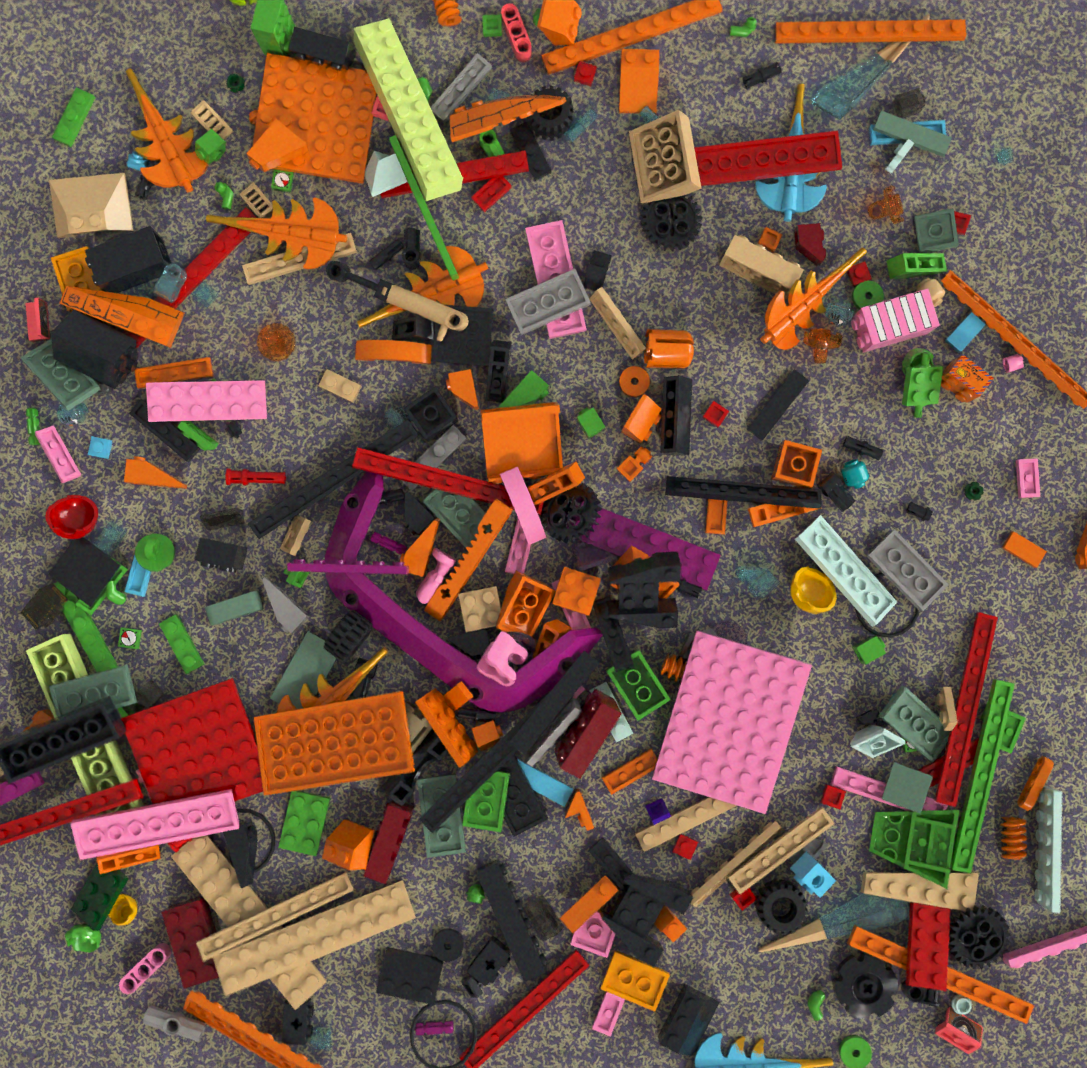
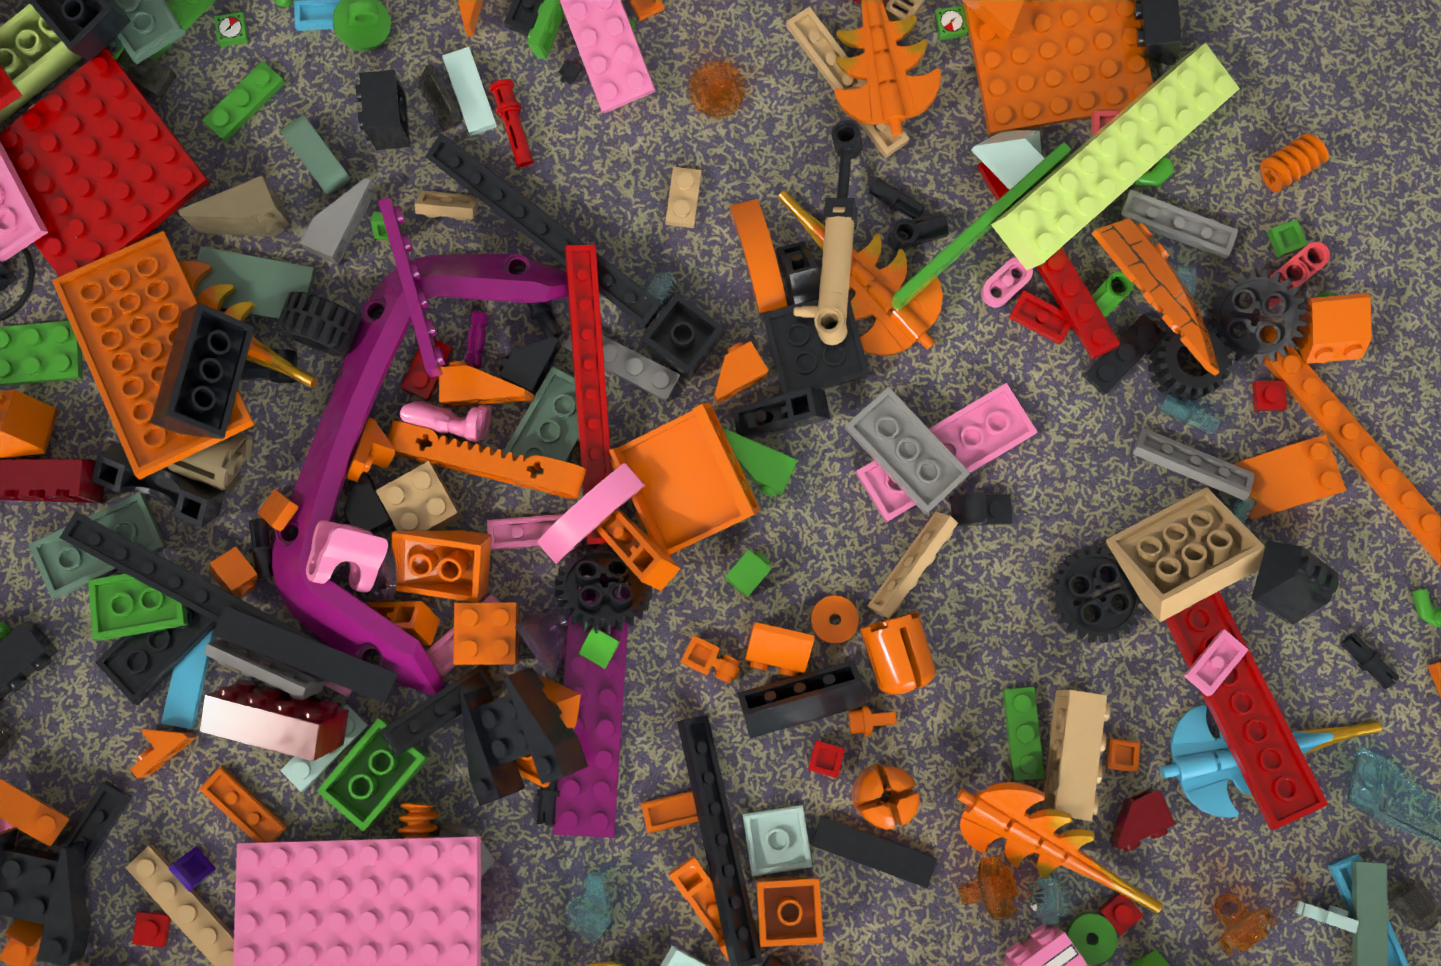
camera: 65 degrees right, 5 degrees down
(224, 498) = (469, 91): none -> light aqua tile
(258, 662) = (241, 210): none -> dark tan slope
(360, 712) = (202, 373): none -> black slope
(398, 582) = (418, 380): none -> red plate
(440, 625) = (371, 449): none -> orange slope
(447, 727) = (226, 509): orange plate -> none
(462, 206) = (1005, 283): none -> bright pink plate
(521, 53) = (1262, 291): none -> black gear
(606, 526) = (599, 648): none -> bright green slope
(612, 133) = (1194, 464): none -> light grey plate
(701, 384) = (863, 720): none -> orange piece
(703, 101) = (1293, 582): none -> black slope
(735, 164) = (1216, 662): none -> bright pink plate
(738, 293) = (1023, 734): none -> bright green plate
(749, 385) = (902, 802): none -> orange cylinder
(753, 459) = (777, 840): none -> light aqua tile

